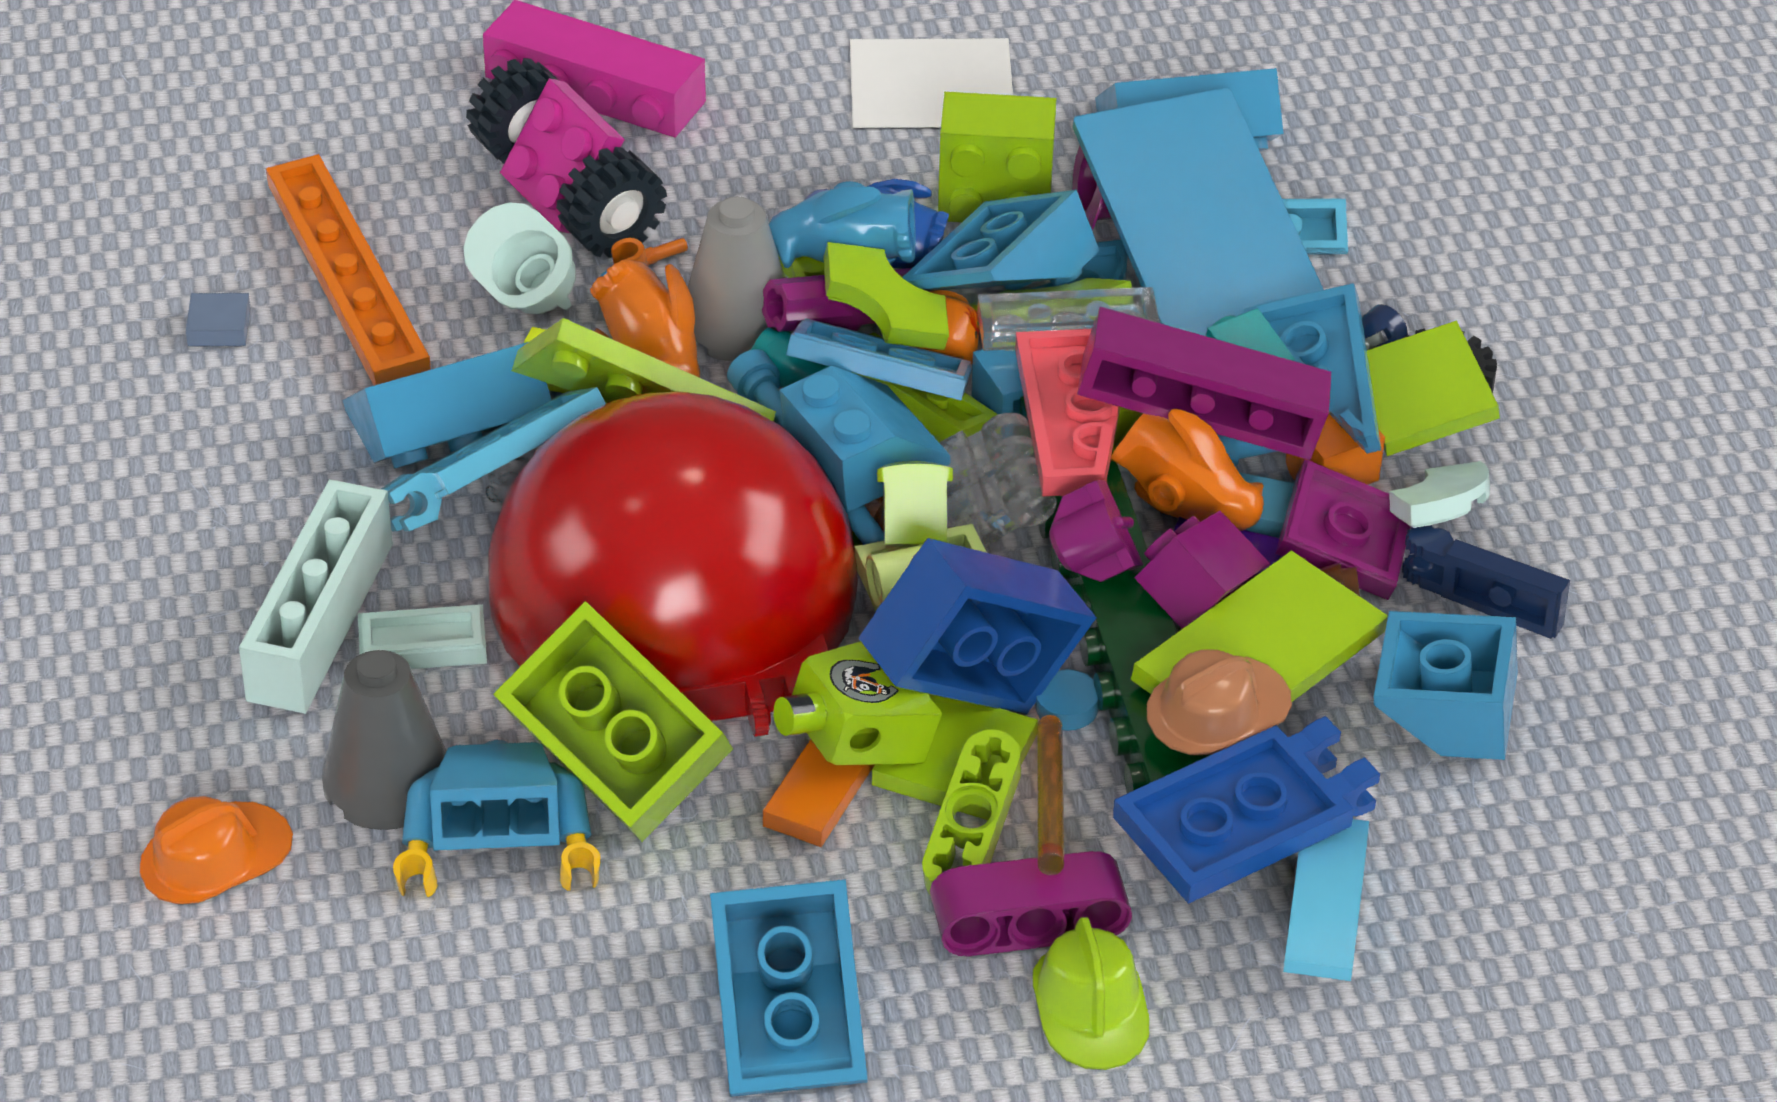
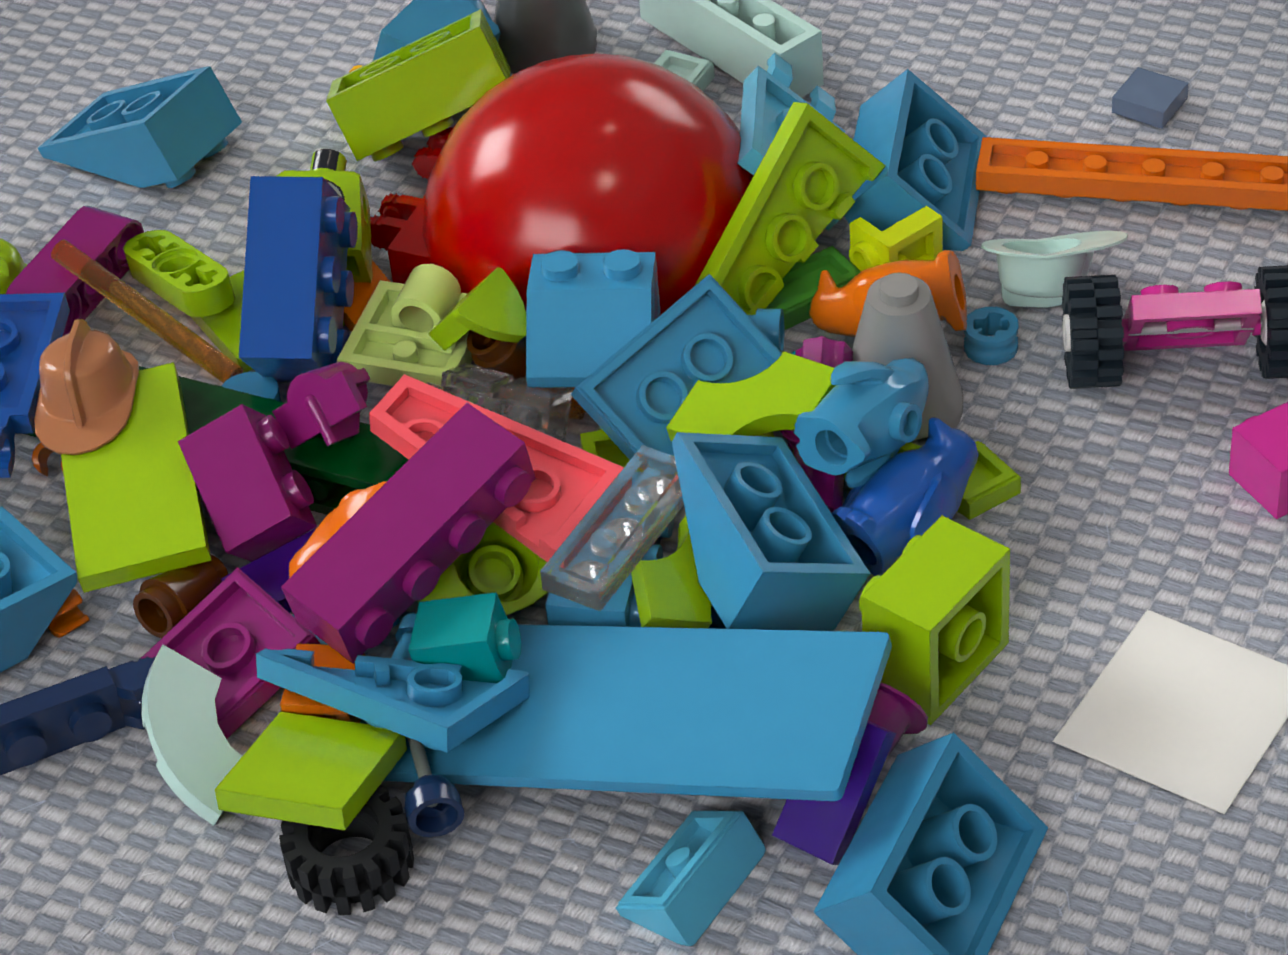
camera: 130 degrees right, 0 degrees up
(634, 250) = (1035, 364): orange hand -> none

